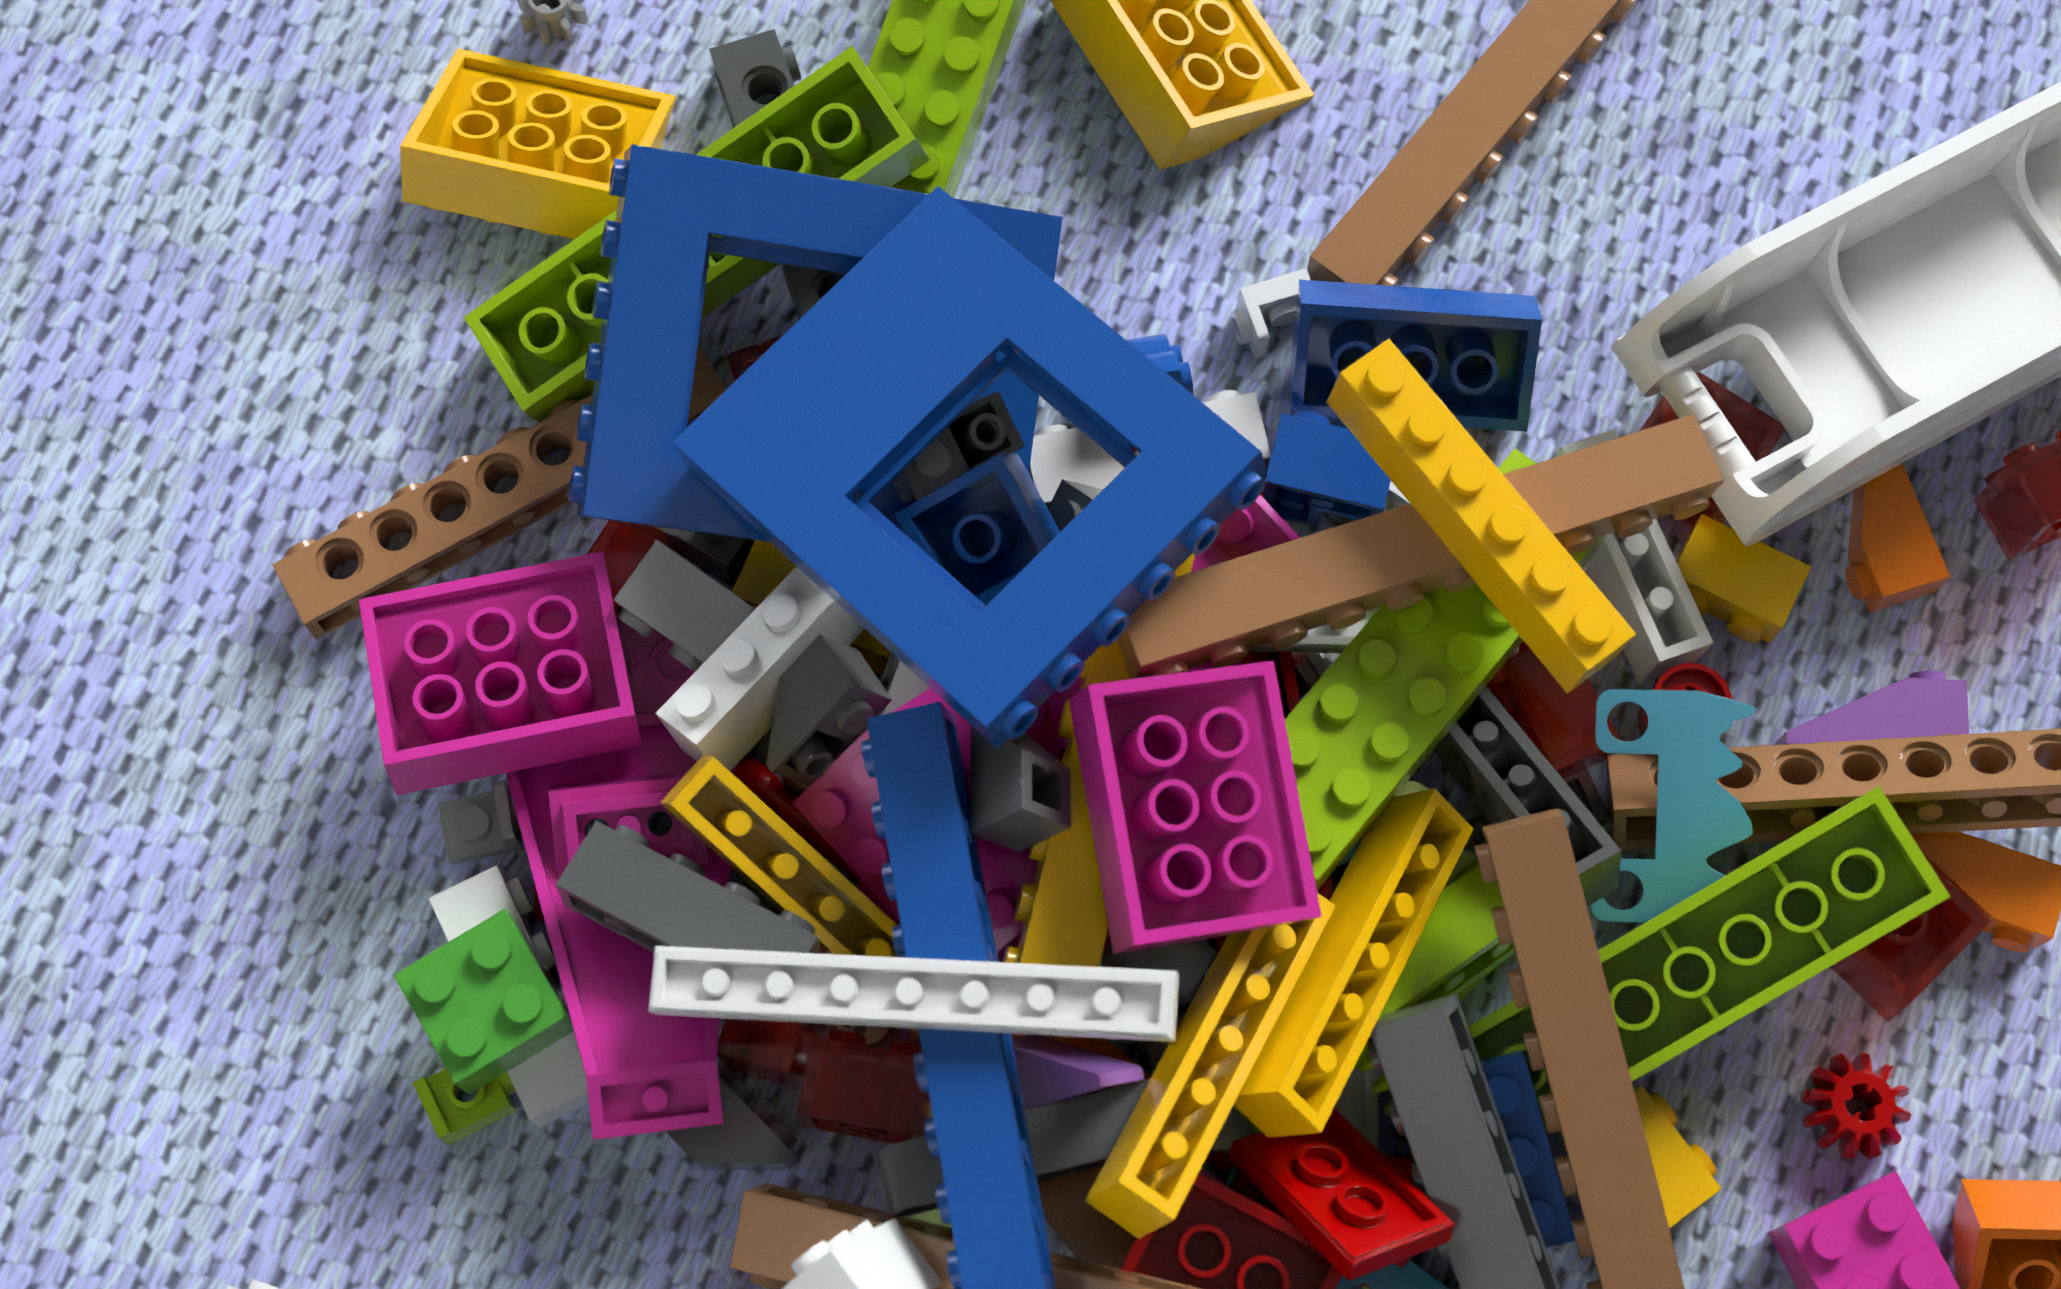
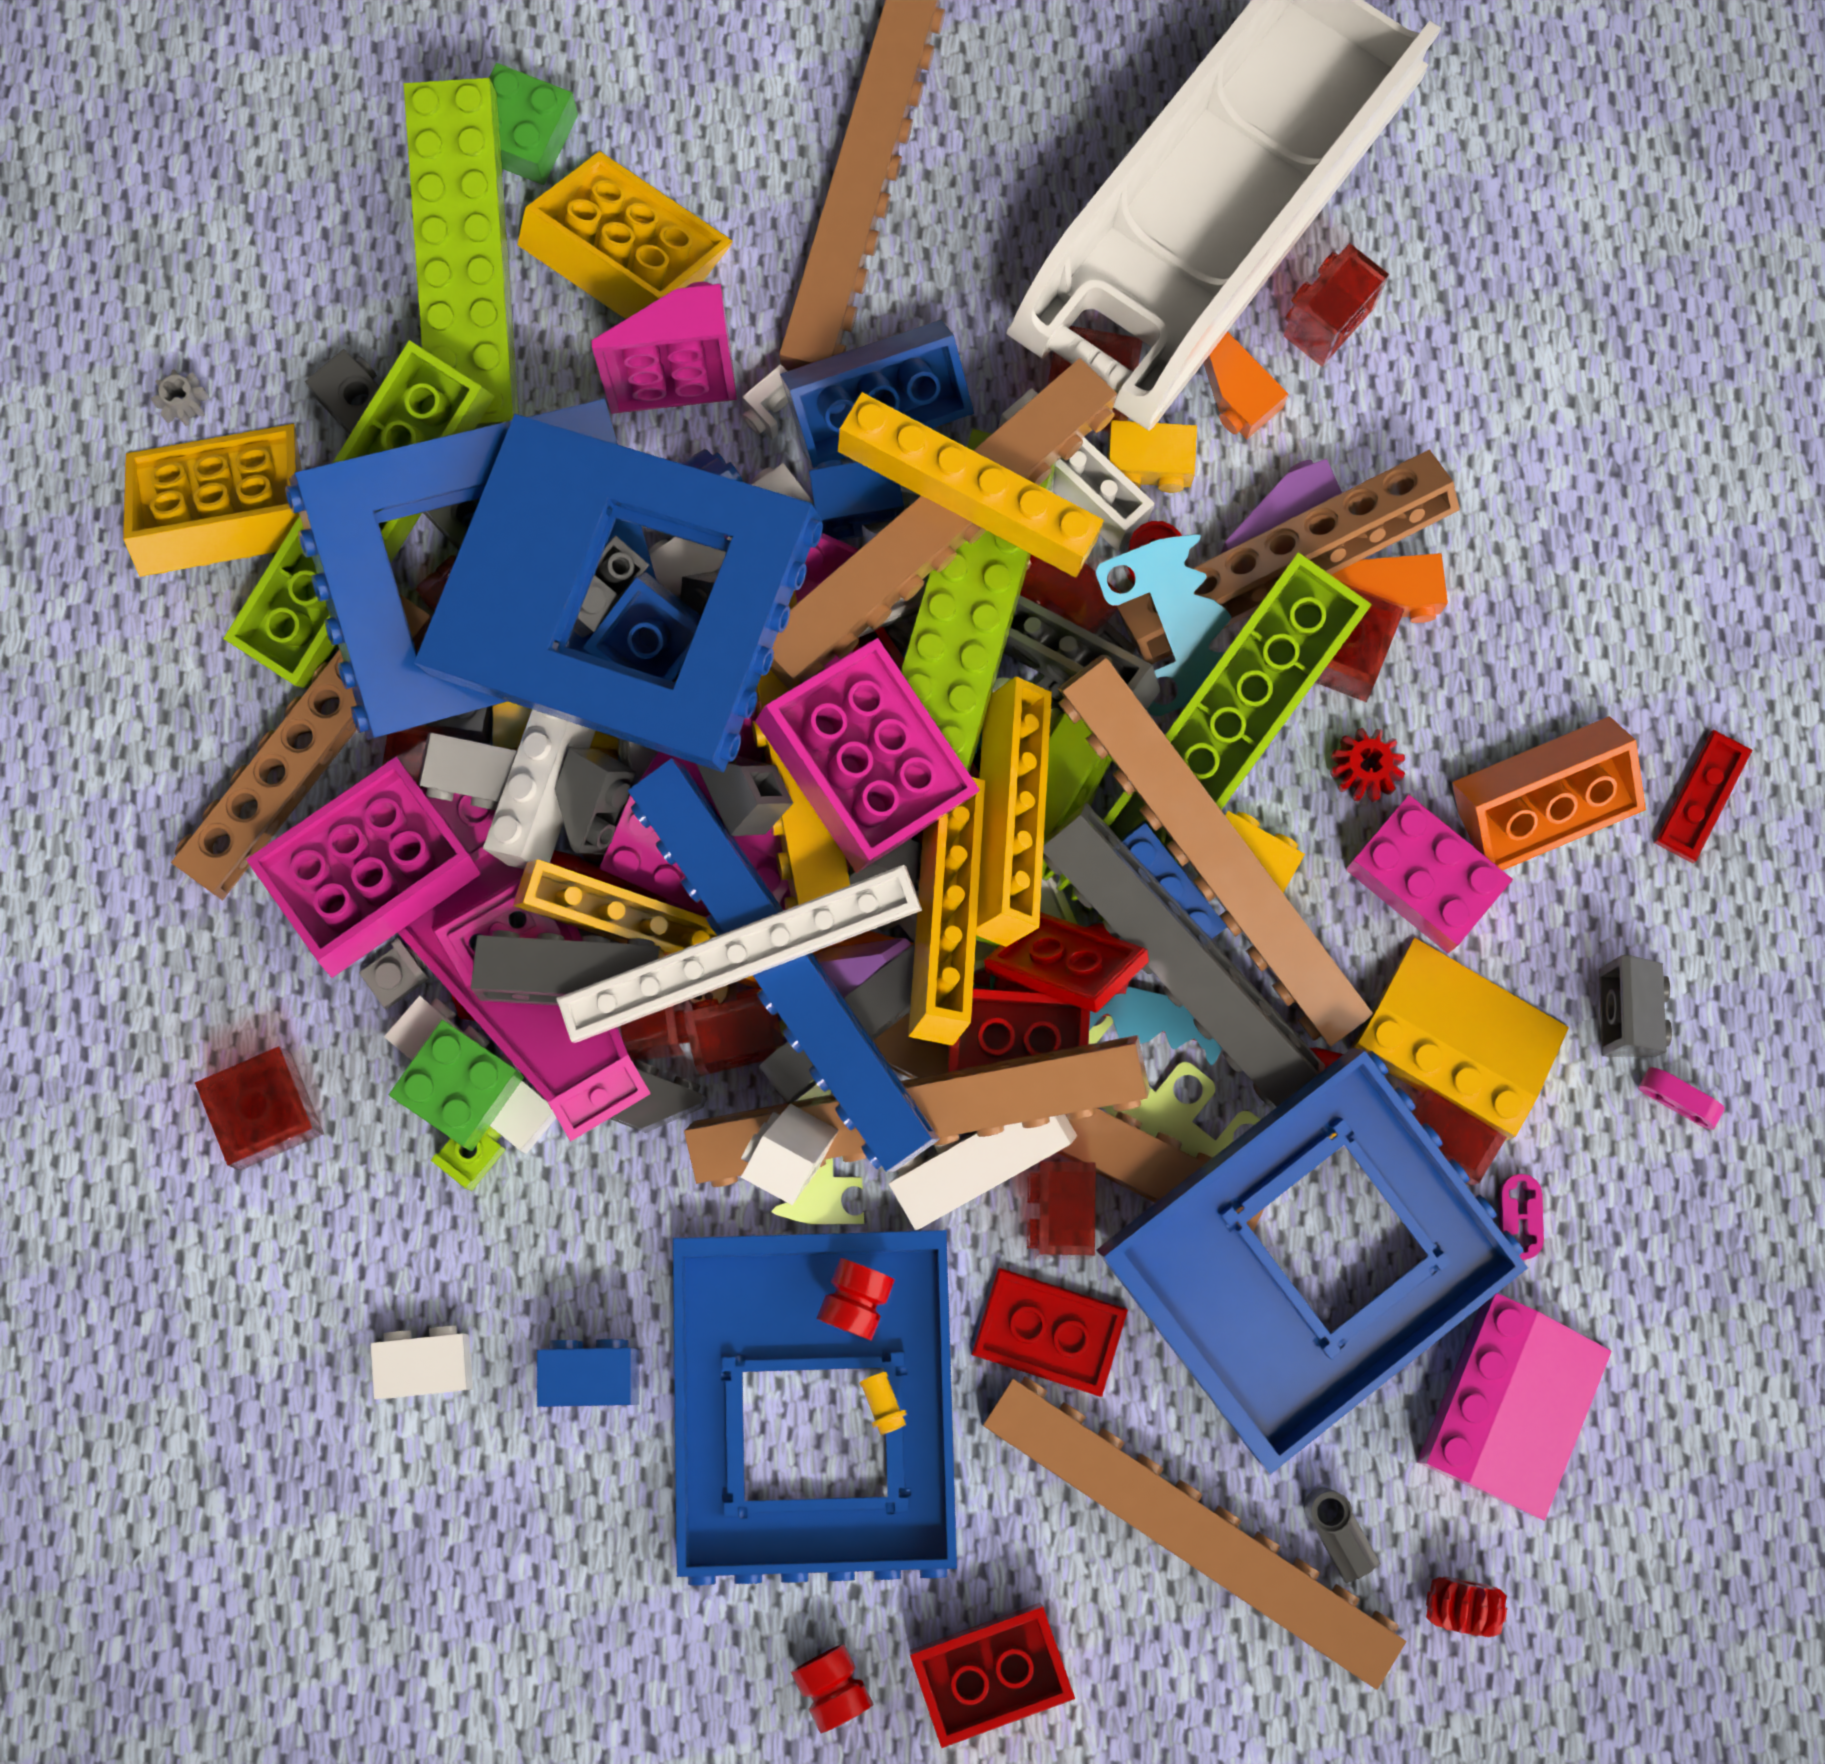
camera: 25 degrees left, 5 degrees up
(234, 920) = (259, 1108): none -> clear red brick
(1169, 195) = (669, 353): none -> dark pink slope

